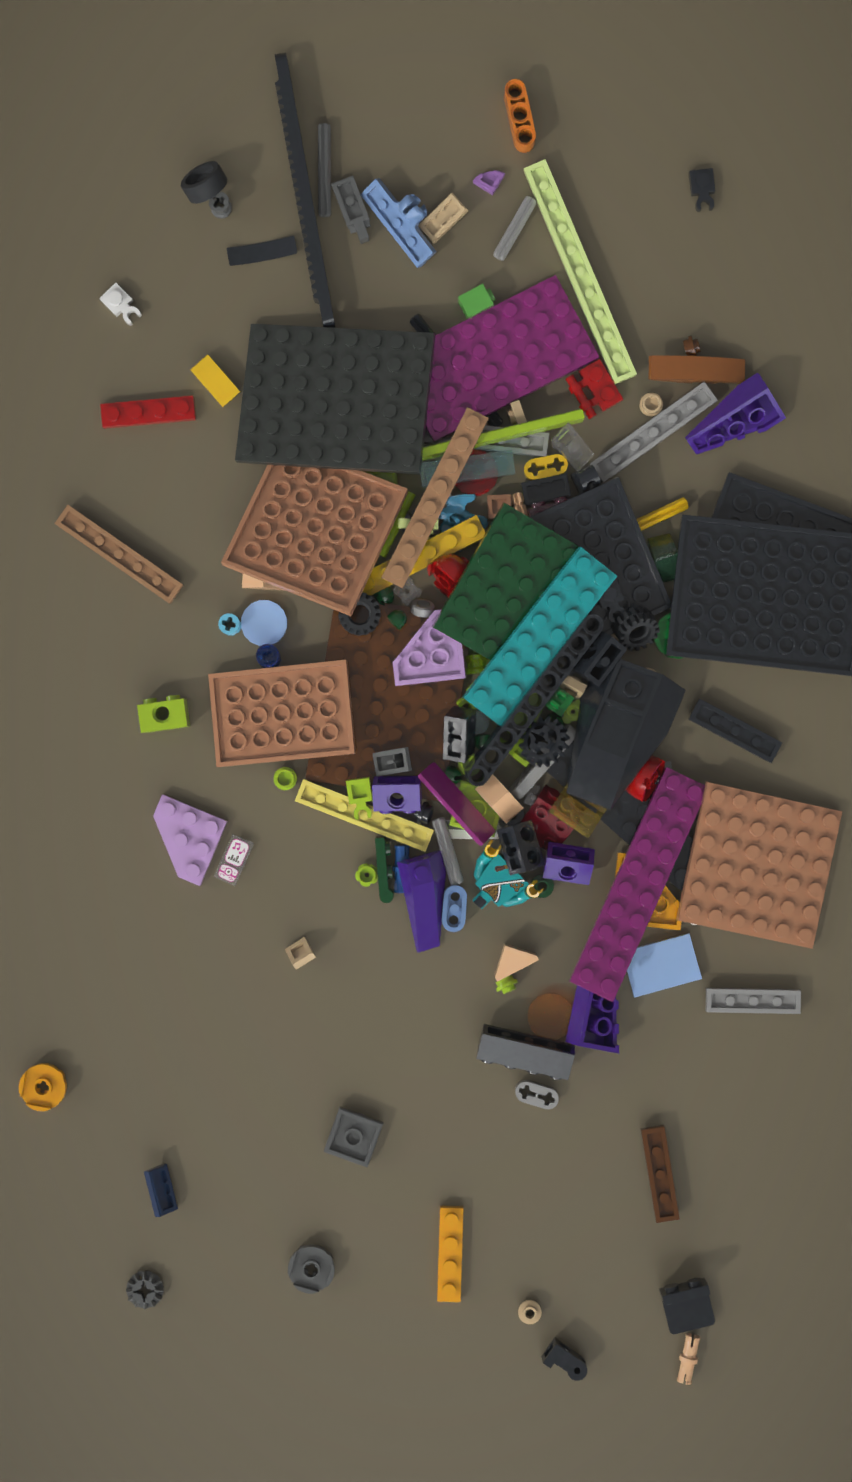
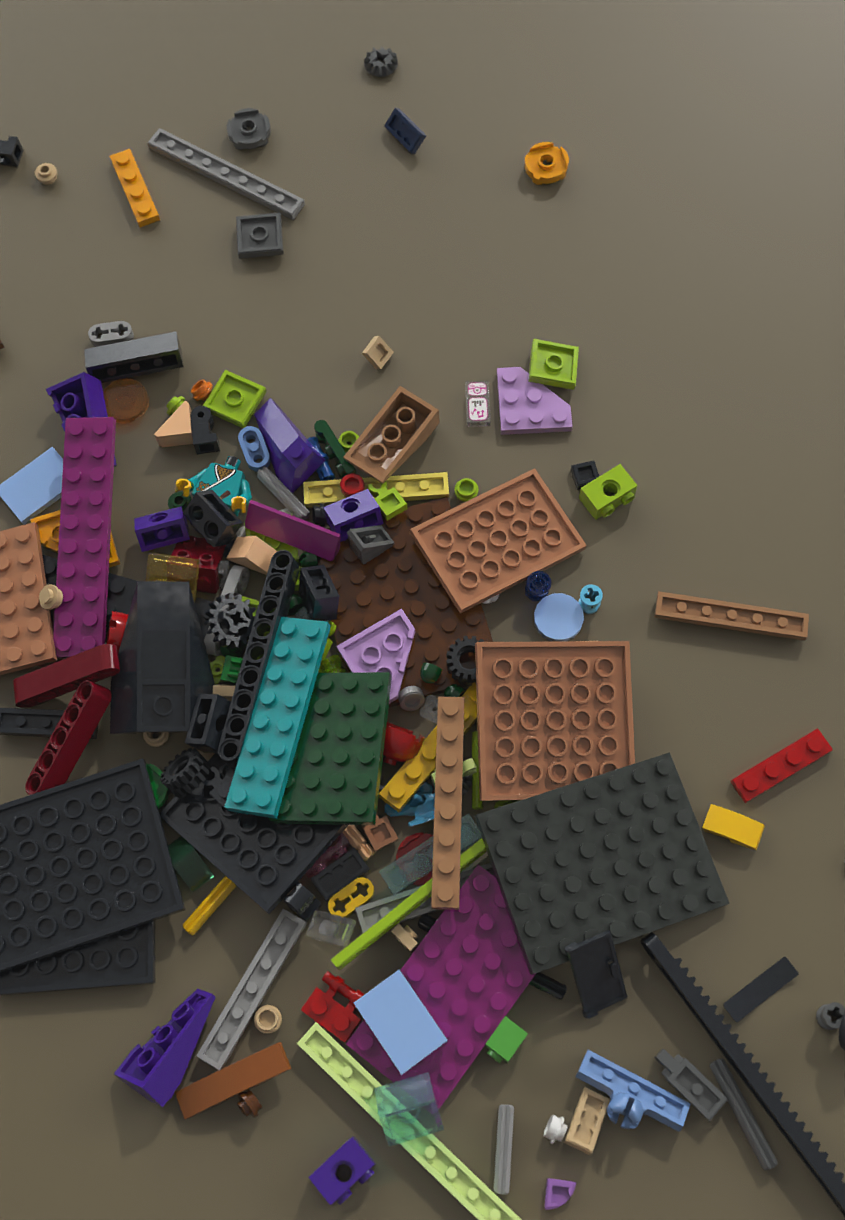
camera: 160 degrees right, 20 degrees down
(146, 865) = (553, 364): none -> lime plate
(173, 744) = (584, 473): none -> black tile
(328, 855) = (393, 435): none -> medium nougat slope
(355, 1228) = (226, 174): none -> light grey tile
(383, 315) = (596, 979): none -> black door
(384, 825) = (351, 484): none -> red tile
(450, 968) = (235, 398): none -> lime plate
(470, 223) = (555, 1129): none -> white plate
(477, 991) = (201, 390): none -> orange plate
(491, 956) = (202, 425): none -> black leg
(550, 350) = (400, 1021): none -> light blue tile
(573, 286) = (408, 1109): none -> clear light blue slope
(631, 276) = (326, 1177): none -> dark purple brick
(690, 837) = (50, 597): none -> tan plate
(703, 757) = (66, 675): none -> dark red beam
(721, 700) = (69, 737): none -> dark red beam

